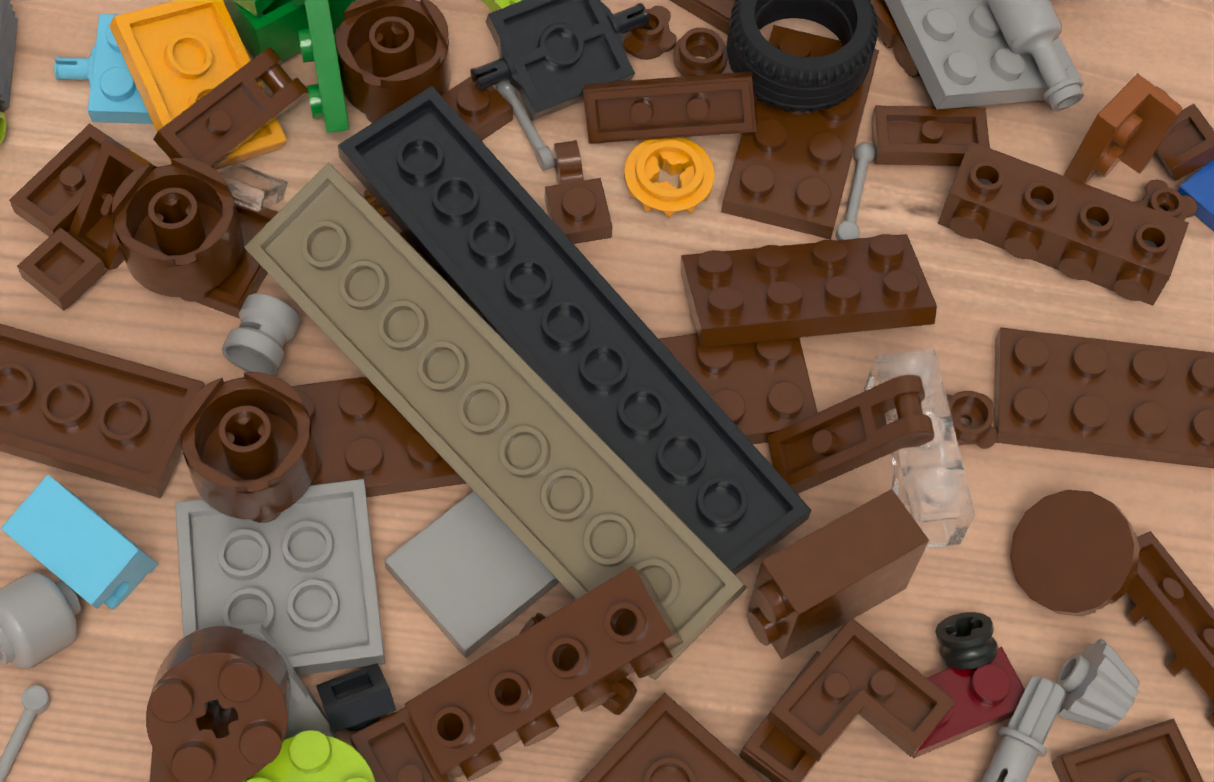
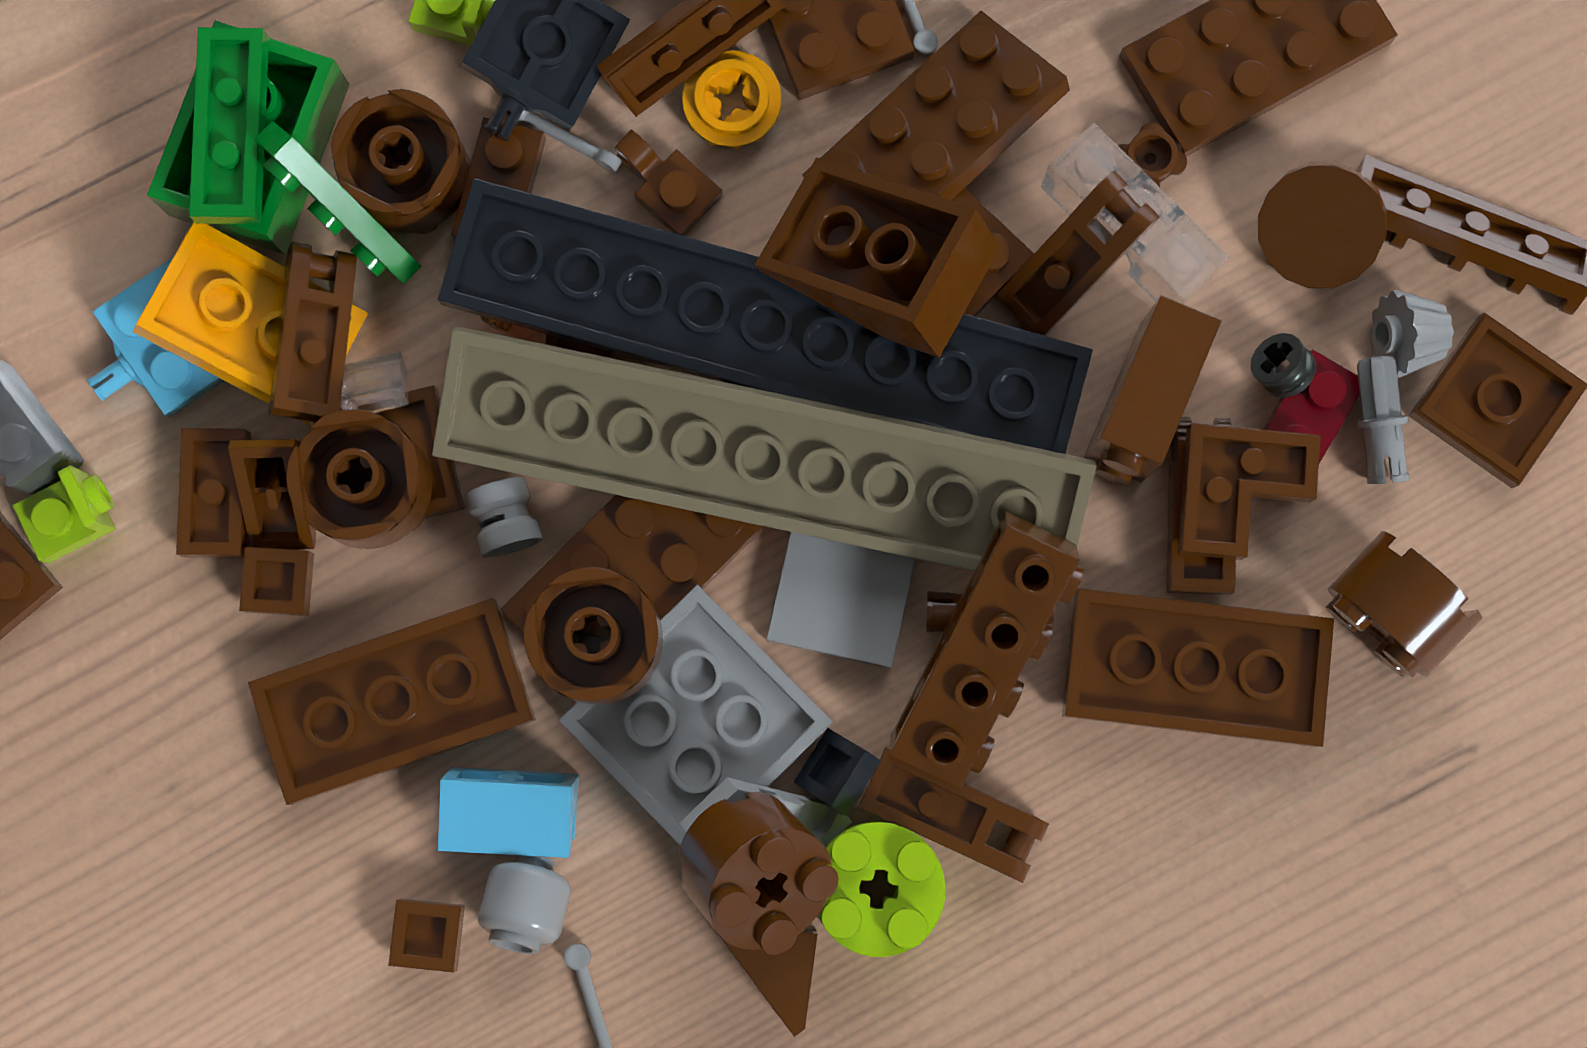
camera: 30 degrees left, 20 degrees up
(693, 325) = (881, 254): none -> reddish brown slope

